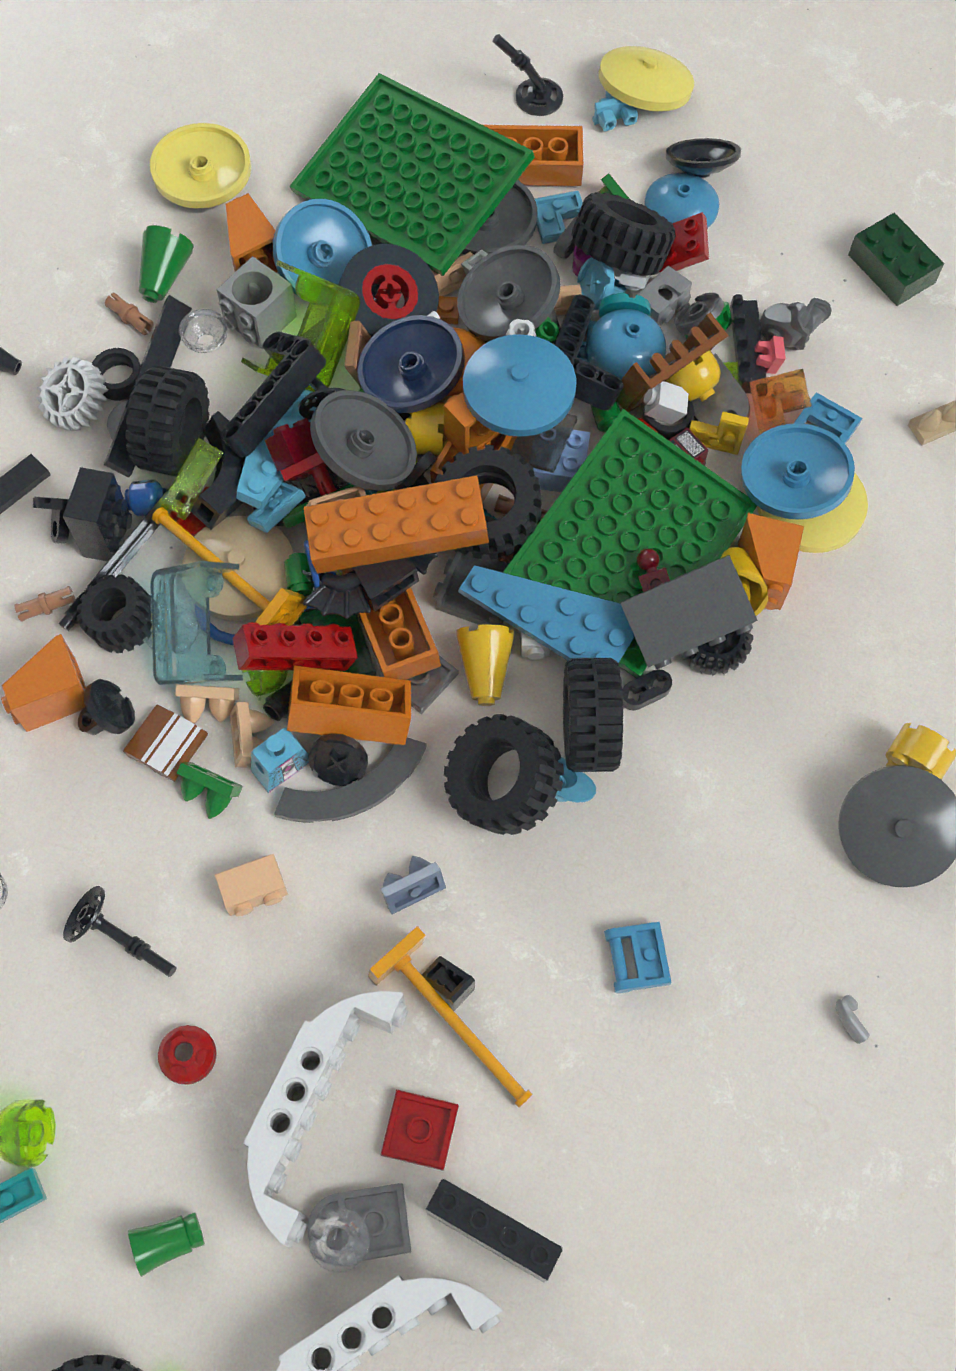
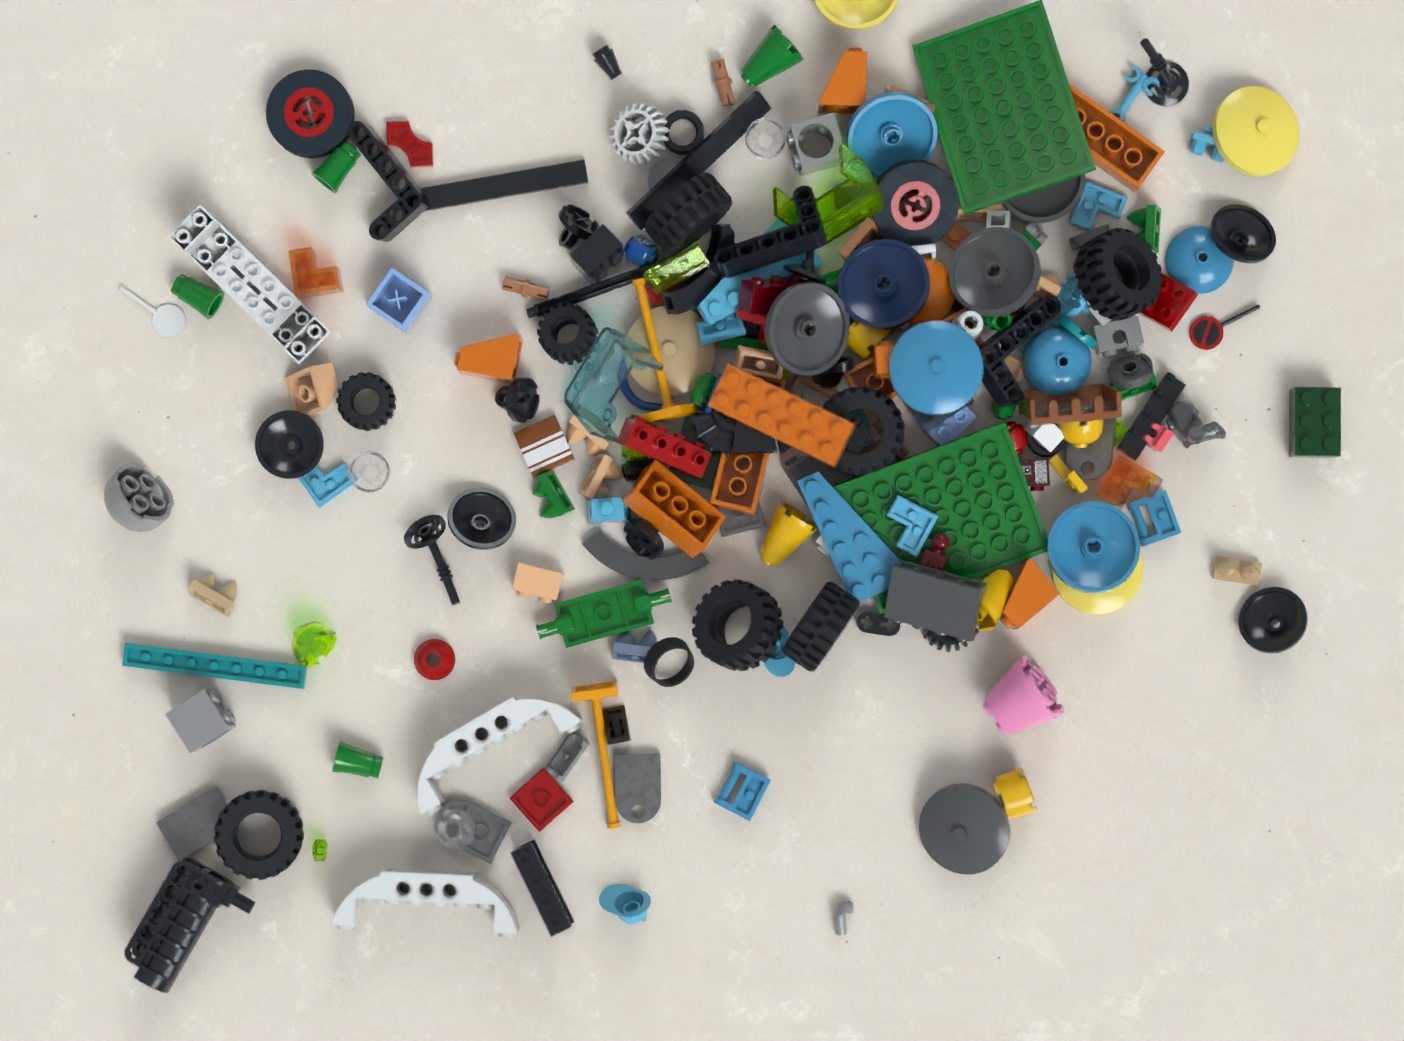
camera: 40 degrees right, 20 degrees up
(141, 857) = (481, 508): none -> black dish
(348, 870) = (604, 613): none -> green plate
(415, 1057) = (566, 756): none -> light grey hinge
(435, 869) = (661, 648): none -> black tyre
(515, 104) = (1139, 82): none -> medium azure bar
(517, 1033) = (637, 784): none -> flat silver tile
(604, 1179) = (625, 902): none -> medium azure piece
(611, 556) = (917, 521): none -> medium azure tile
(739, 252) = (1208, 332): none -> piece
(849, 655) = (1022, 698): none -> bright pink cone

